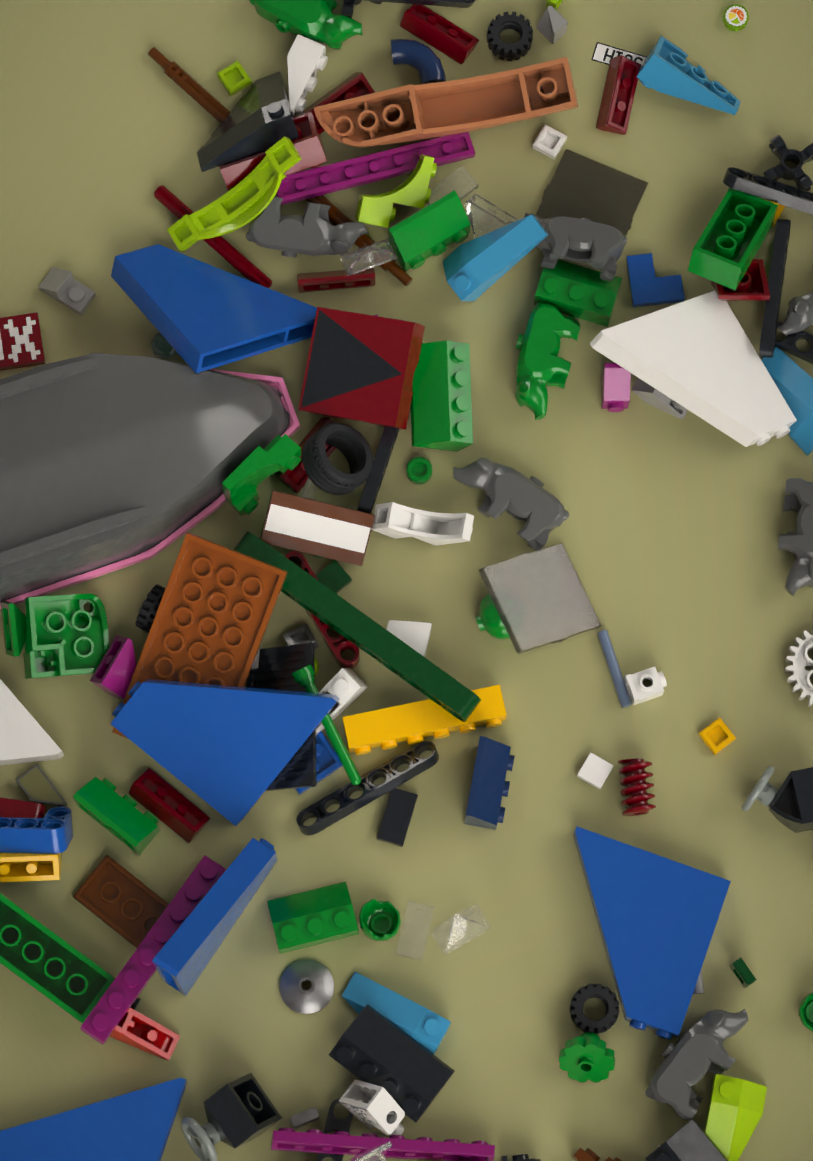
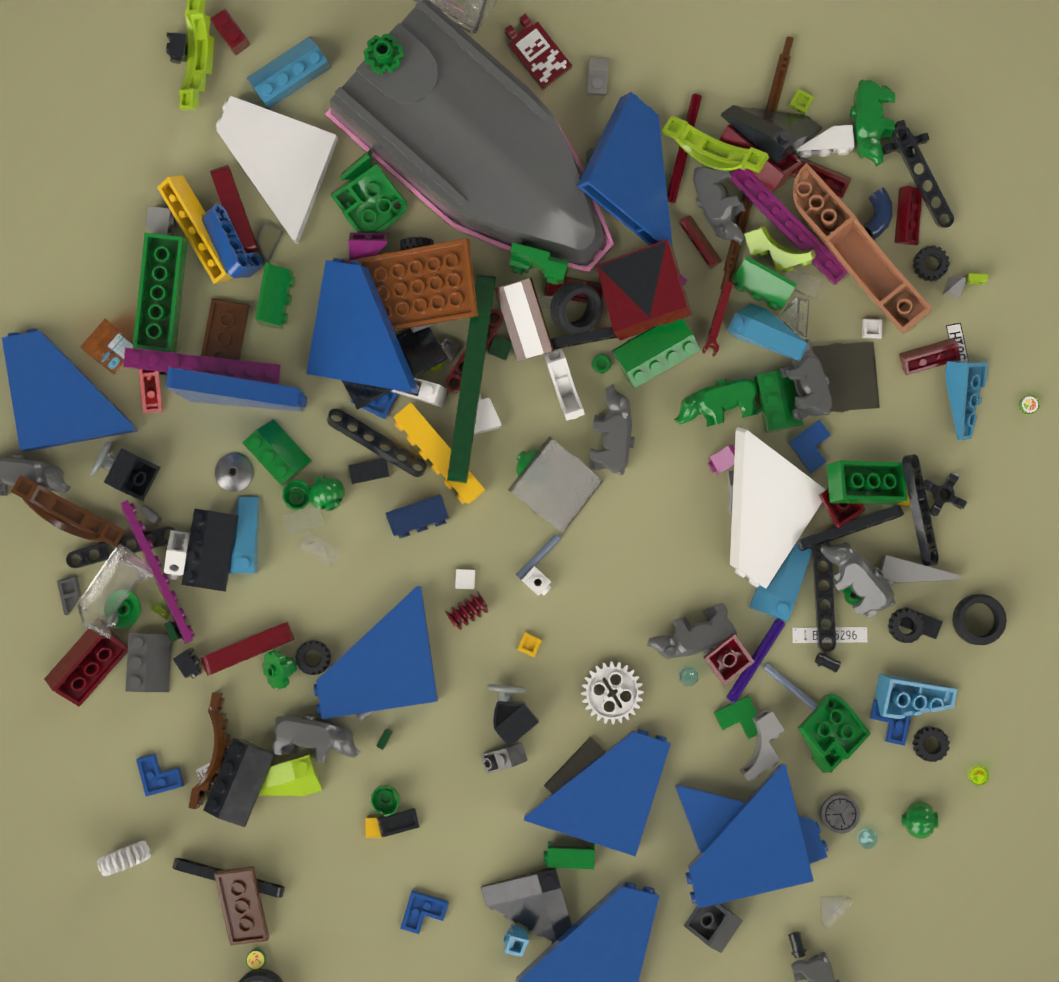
camera: 65 degrees right, 10 degrees up
(61, 1057) = (107, 346): none -> clear orange slope
(168, 805) = (301, 325): dark red slope -> none
(306, 678) = (420, 365): green piece -> none
(368, 256) = (724, 253): clear slope -> none
(397, 882) = (326, 493): none -> green plant
(442, 304) = (717, 319): none -> dark red tile
(540, 1085) = (247, 648): none -> dark red beam

